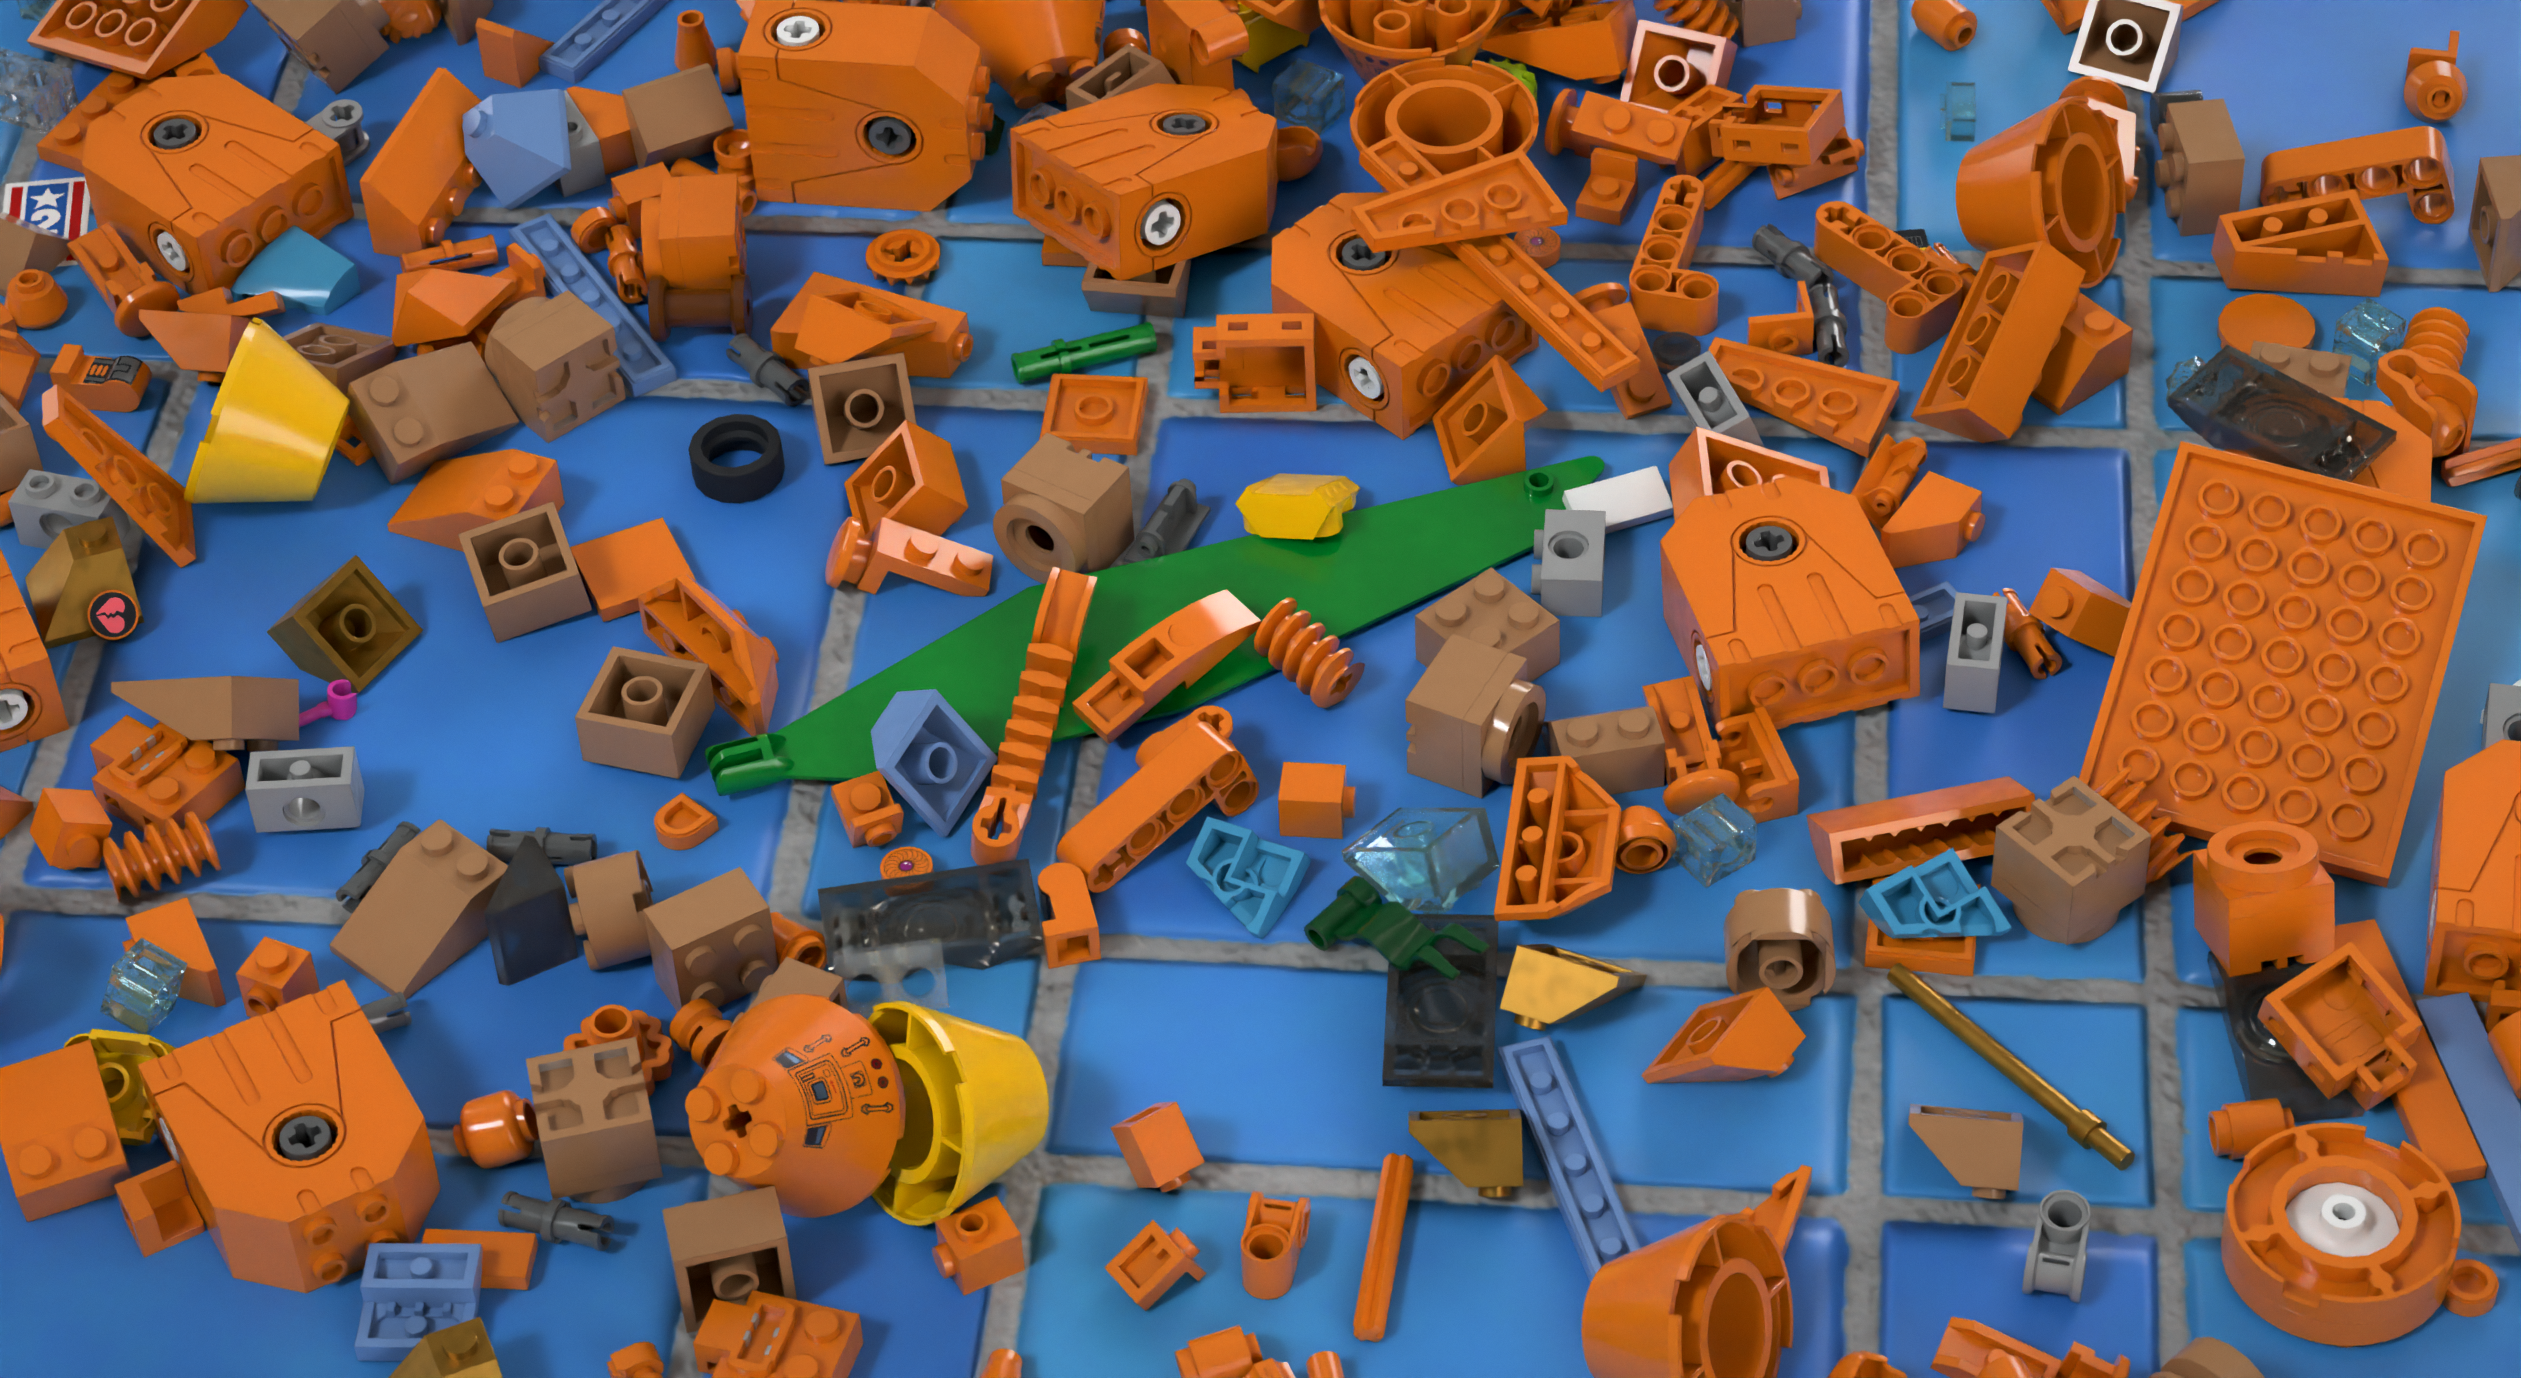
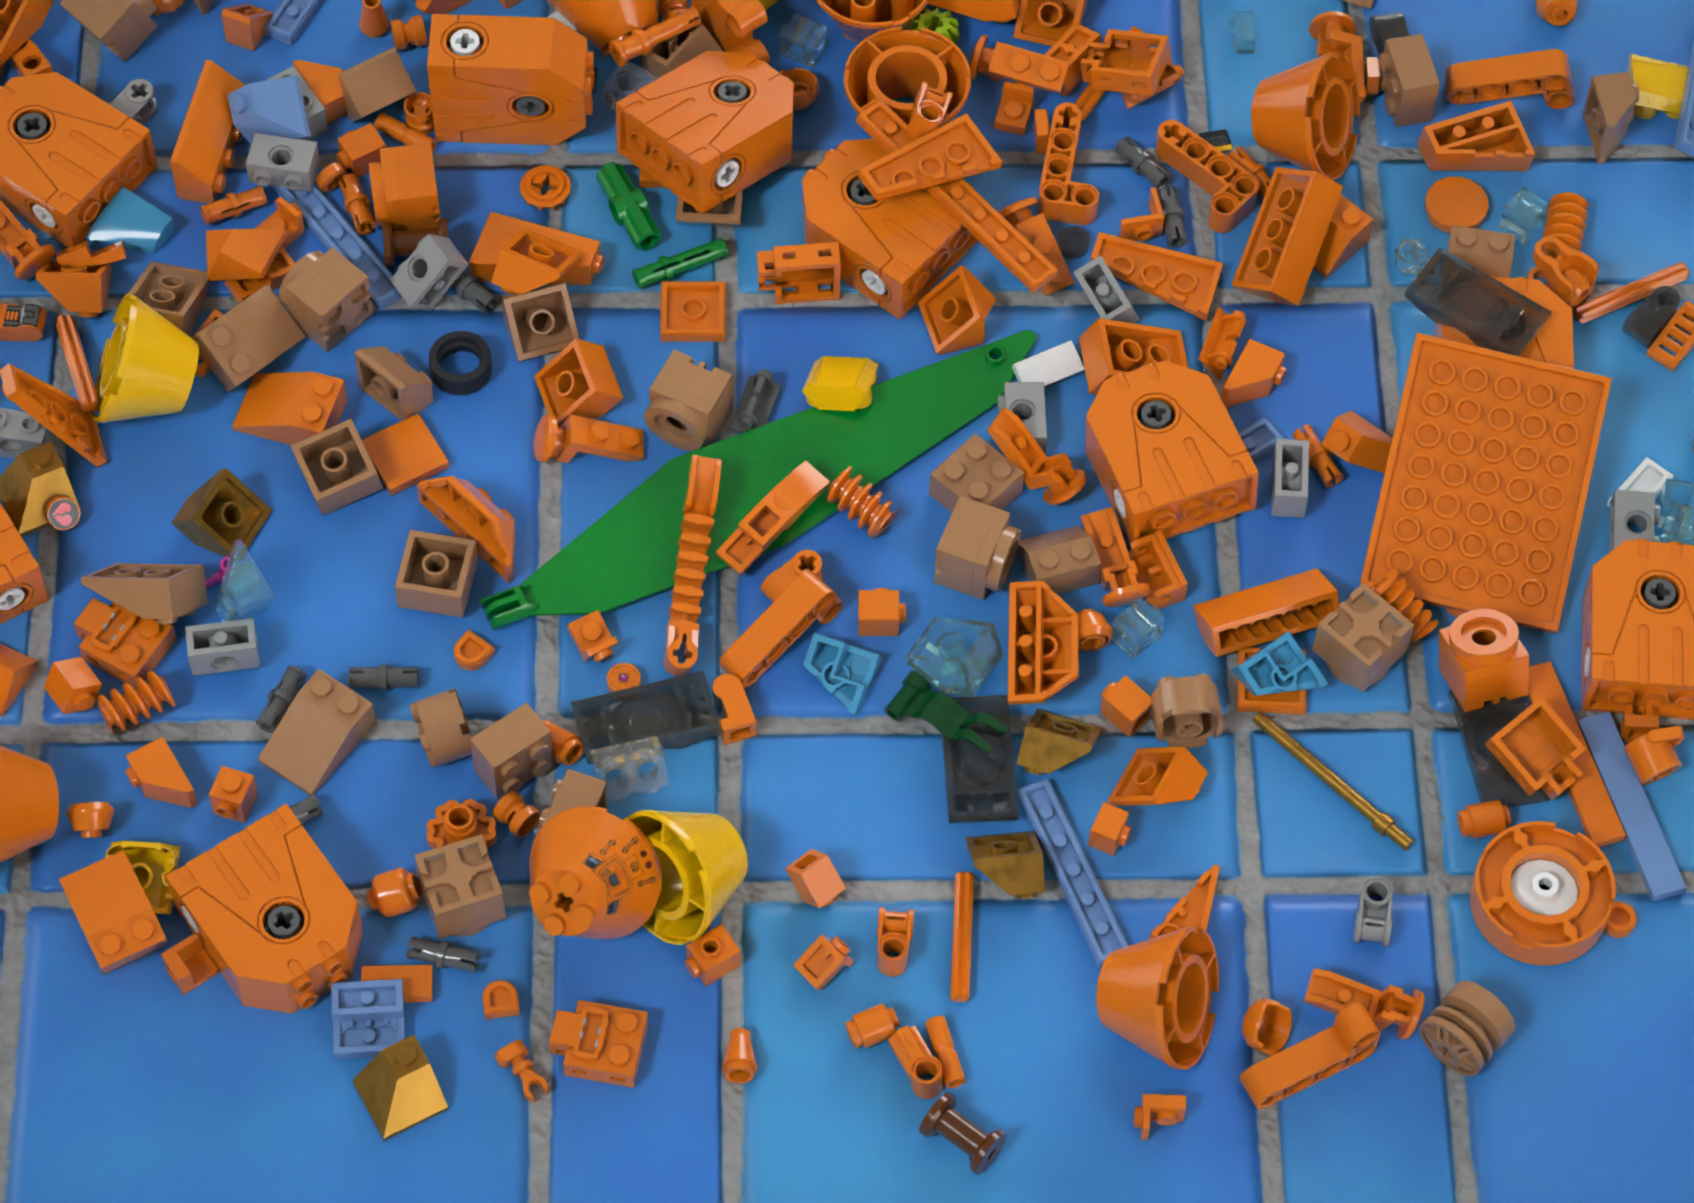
camera: 10 degrees left, 15 degrees up
(56, 1002) = (90, 818): none -> orange cone
(143, 987) = (147, 804): clear light blue brick -> none
(177, 430) = (77, 363): none -> orange axle
(349, 705) = (243, 587): none -> clear light blue slope
(527, 203) = (270, 152): none -> light grey brick
(529, 917) = (392, 737): clear smoke slope -> none
(629, 472) = (393, 382): none -> medium nougat slope
(633, 1292) = (500, 1000): none -> orange tile
(709, 339) = (429, 272): none -> light grey brick
(727, 1250) = (561, 977): medium nougat brick -> none
(930, 756) = (628, 599): medium blue slope -> none
(1020, 281) = (628, 206): none -> green piece
(1066, 70) = (642, 41): none -> orange pin
(1467, 143) = (927, 111): none -> orange piece
(1582, 623) = (1038, 469): none -> orange piece
(1638, 1108) = (1109, 829): none -> orange plate
(1642, 210) = (1041, 131): none -> orange tile
(1686, 942) = (1126, 705): none -> orange brick
(1973, 1145) = (1316, 841): medium nougat slope -> none
(2148, 167) = (1372, 75): none -> orange tile

